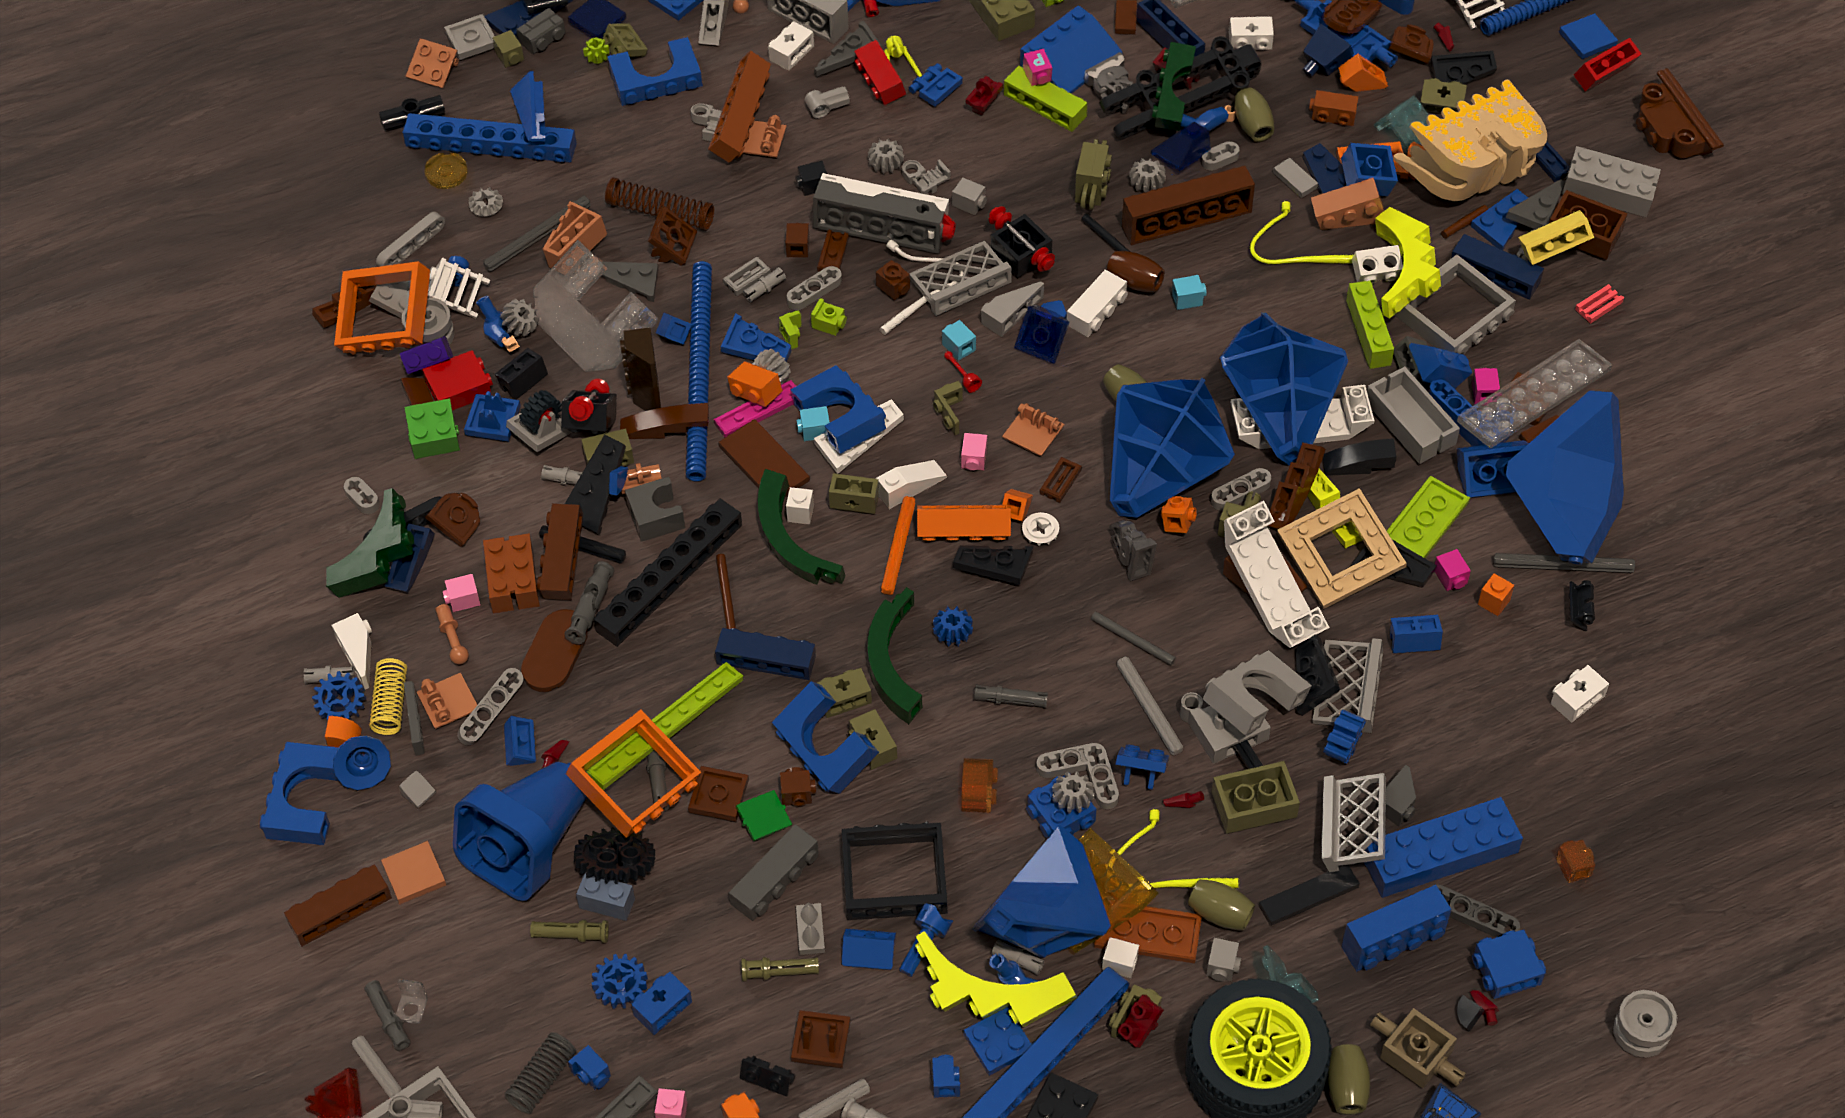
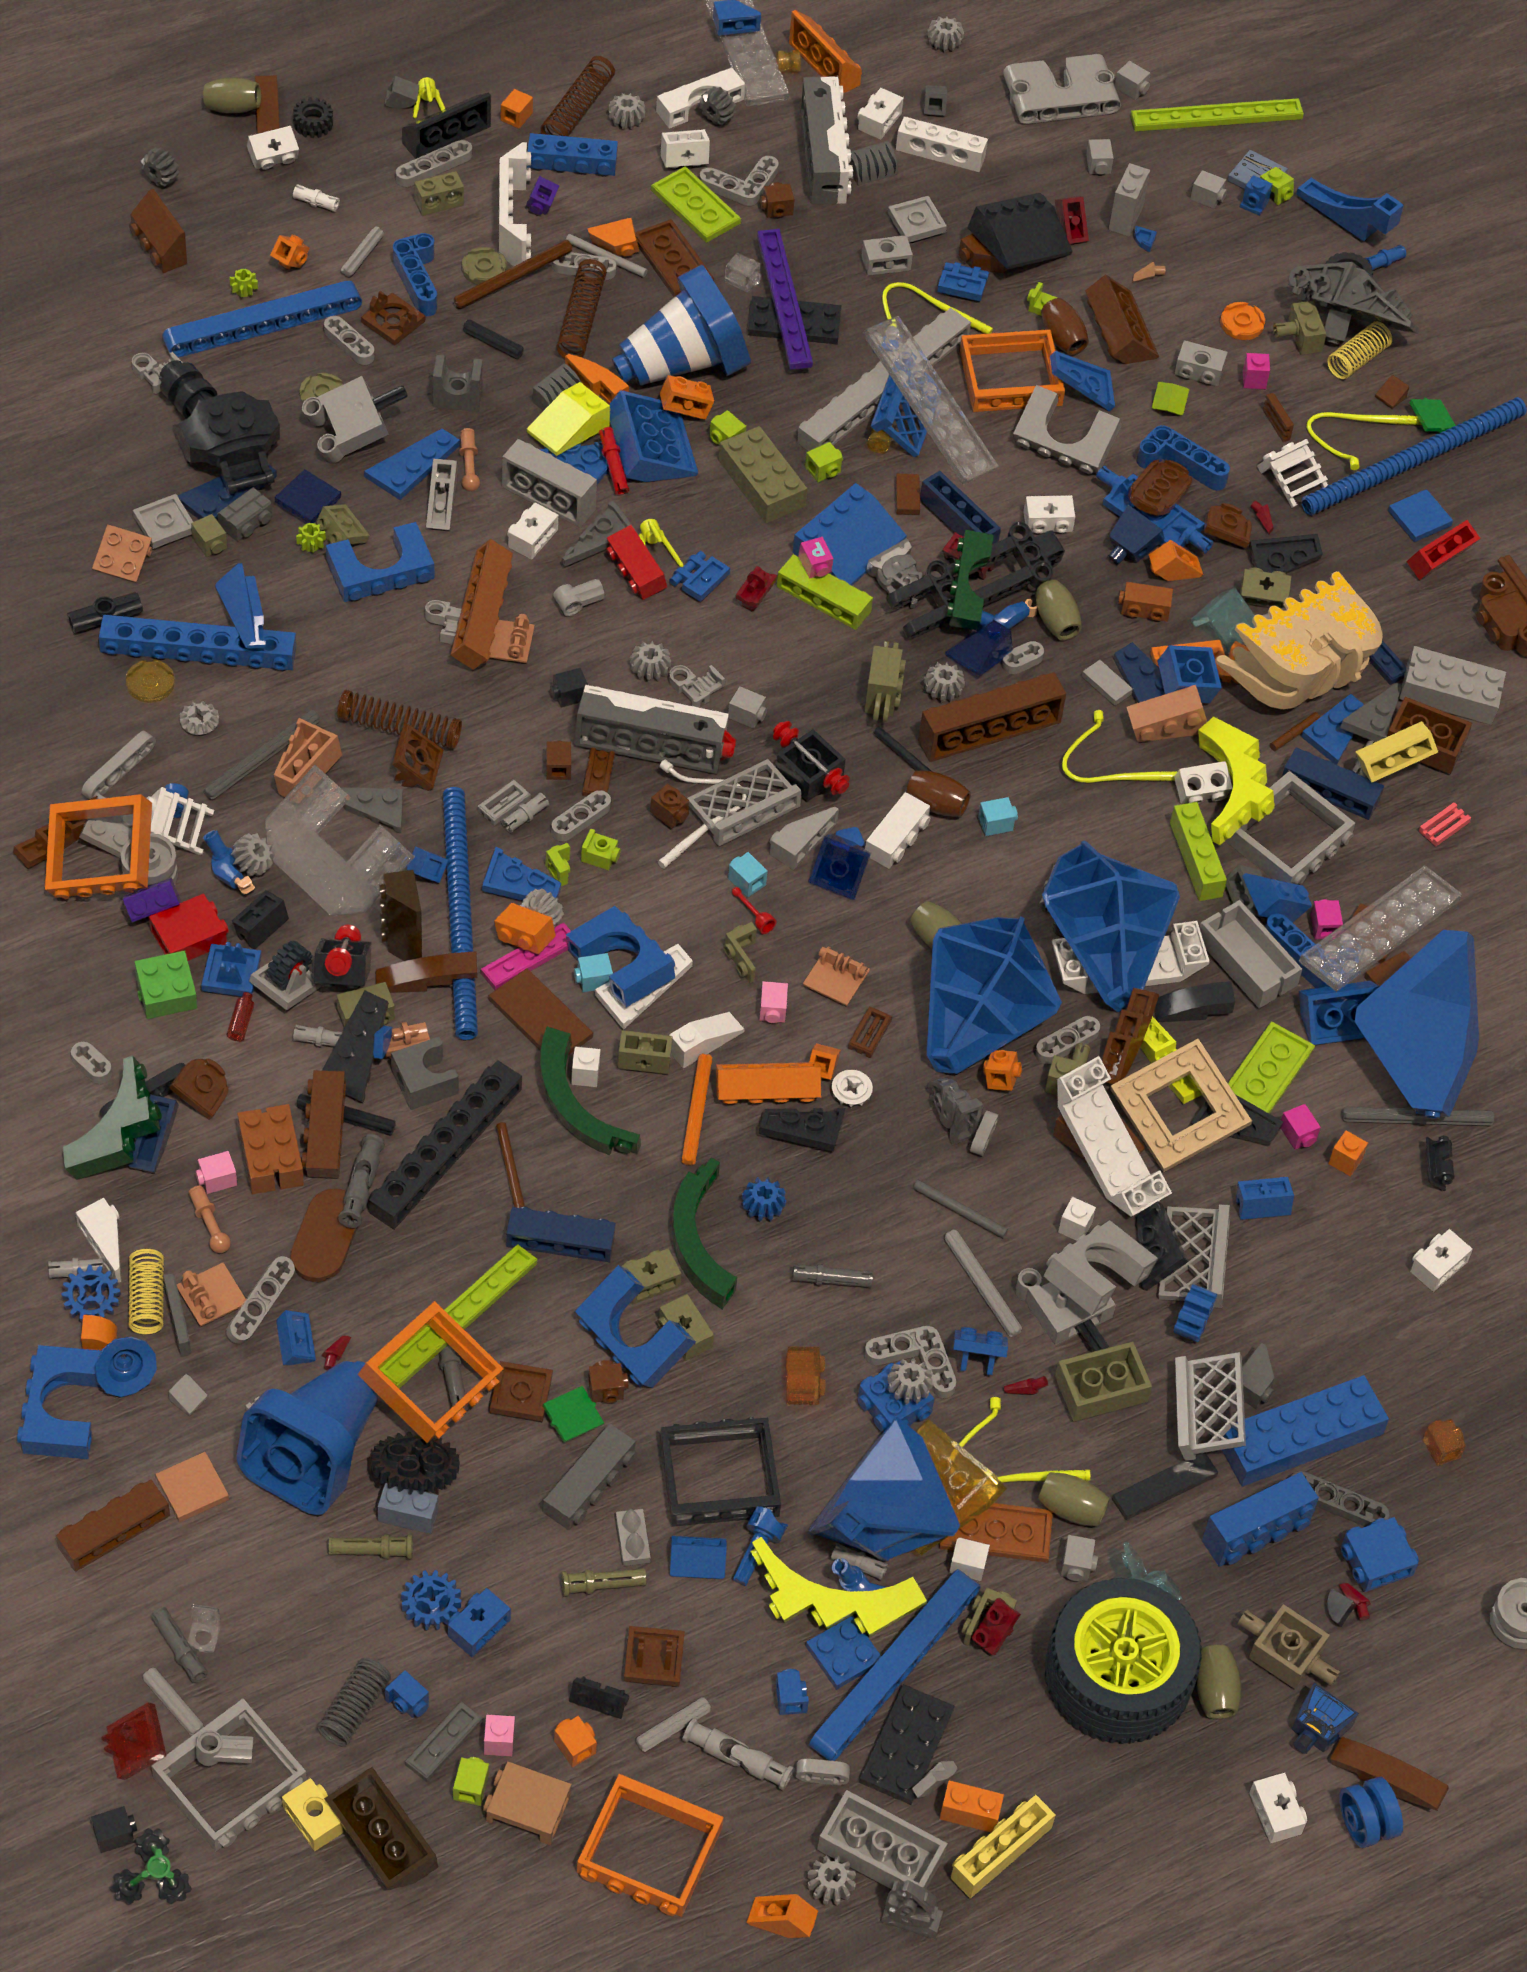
camera: 10 degrees left, 0 degrees up
(416, 390) = (142, 942): reddish brown slope -> none
(496, 458) = (241, 1017): none -> clear red cylinder
(1159, 570) = (984, 1133): none -> light grey beam
(1239, 648) = (1076, 1219): none -> white brick

